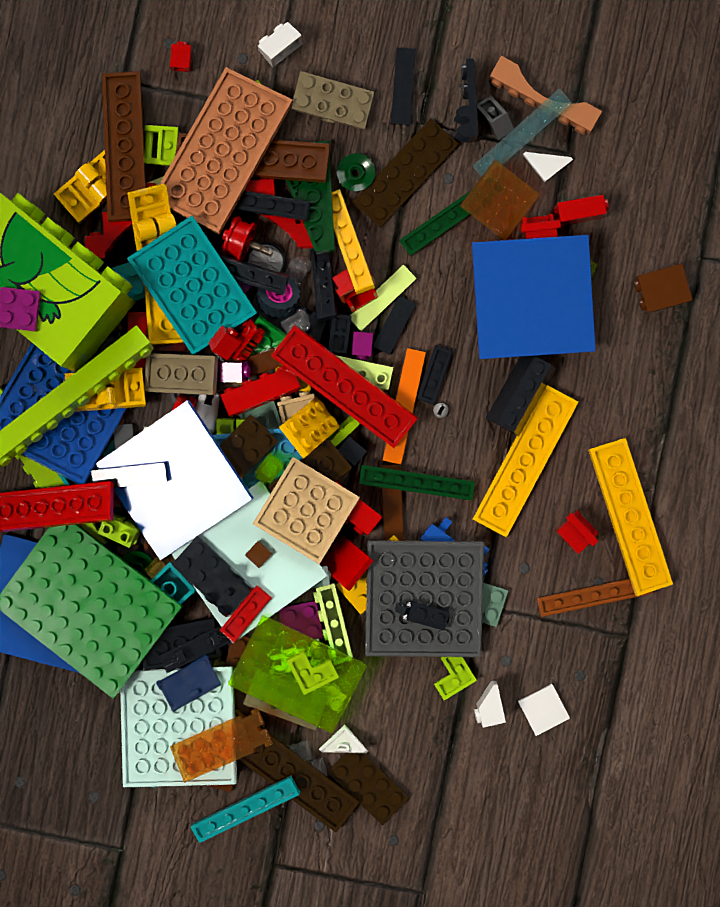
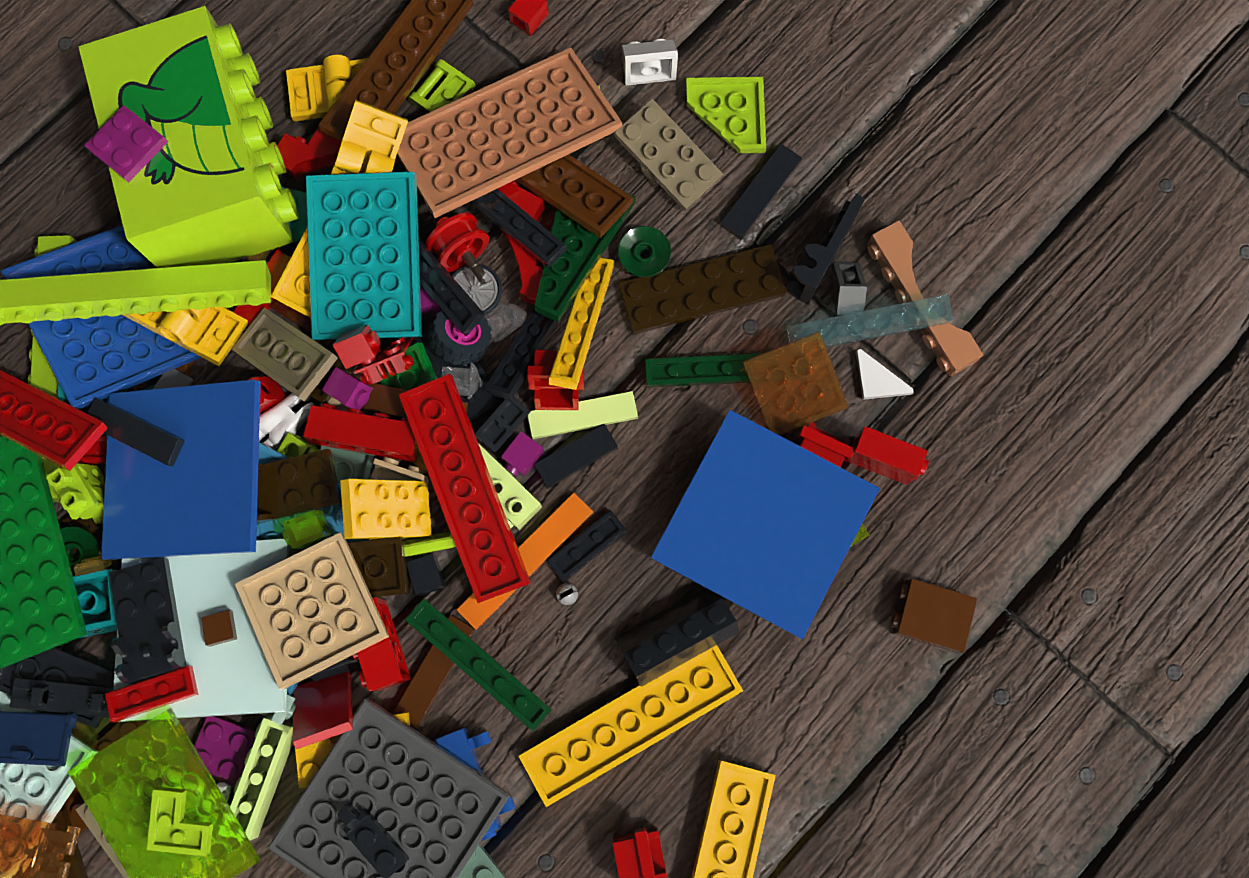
camera: 30 degrees right, 10 degrees down
(351, 43) = (731, 108): none -> lime plate

